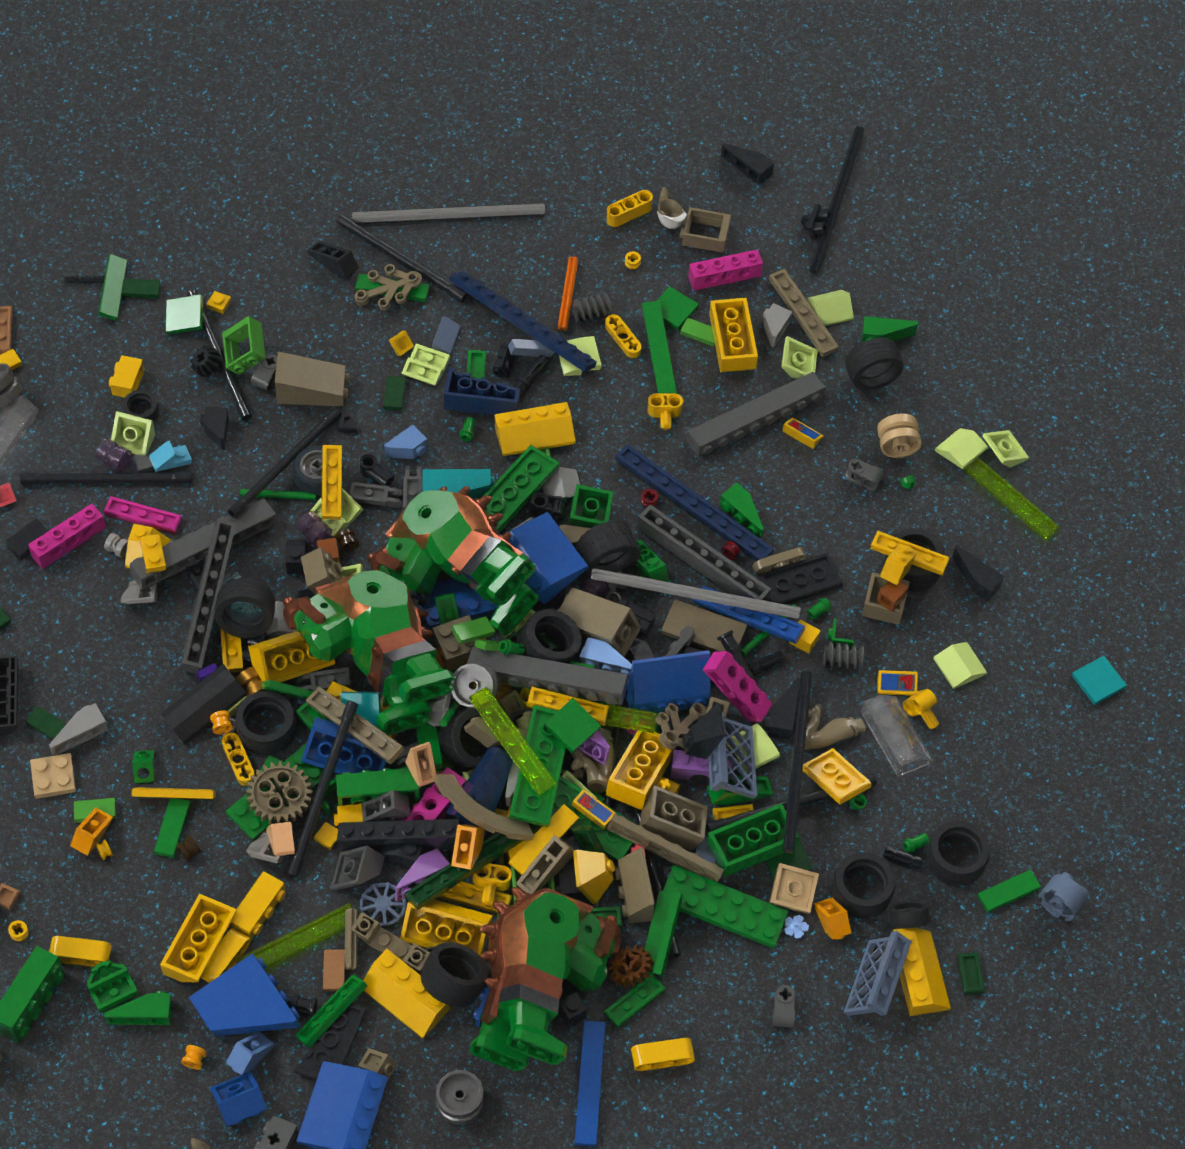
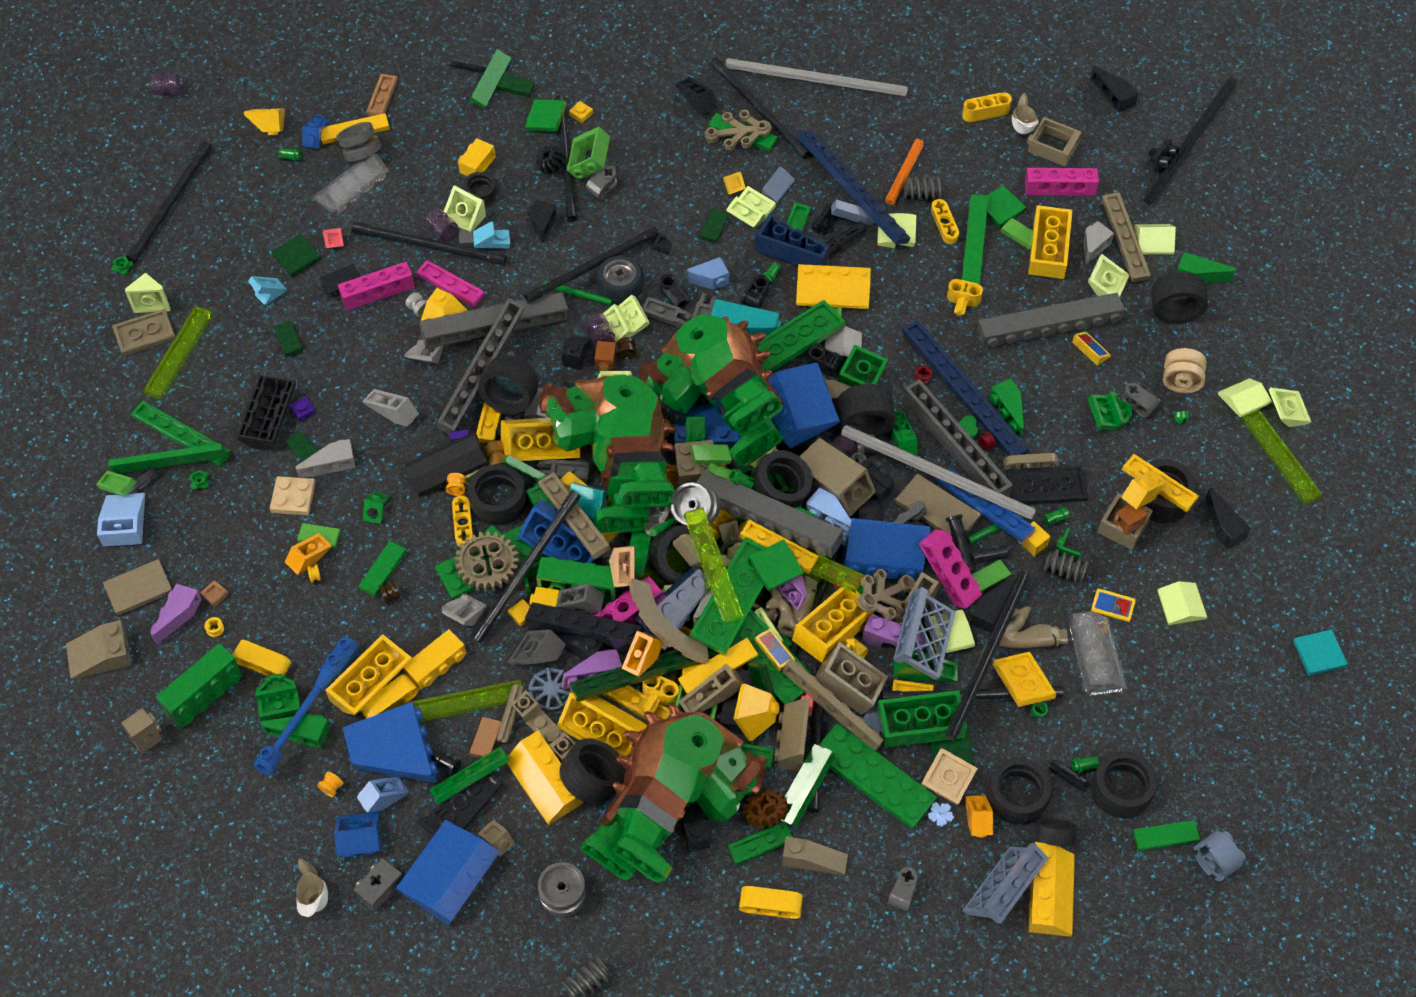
camera: 20 degrees right, 0 degrees up
(32, 683) = (302, 409): none -> dark purple plate
(126, 658) = (392, 406): none -> light grey slope
(152, 553) = (442, 317): yellow plate -> none
(157, 945) = (337, 662): none -> blue bar
(173, 793) = (413, 543): yellow tile -> none
(281, 838) = (475, 603): light nougat slope -> none
(310, 381) = (638, 198): dark tan slope -> none
(320, 569) = (590, 365): dark tan brick -> none
(331, 481) = (626, 291): yellow gear -> none
(459, 454) = (754, 294): none -> black piece
(589, 1084) = (691, 911): blue tile -> none
(632, 265) = (975, 159): yellow bush -> none
(689, 999) = (813, 856): none -> dark tan slope
(705, 734) = (902, 605): black slope -> none
(708, 537) = (968, 423): none -> green tile
(775, 682) = (991, 575): none -> bright green tile
(839, 492) = (1109, 411): none -> green slope
(921, 704) = (1129, 631): yellow beam -> none
(970, 973) = (1103, 906): dark green tile -> none

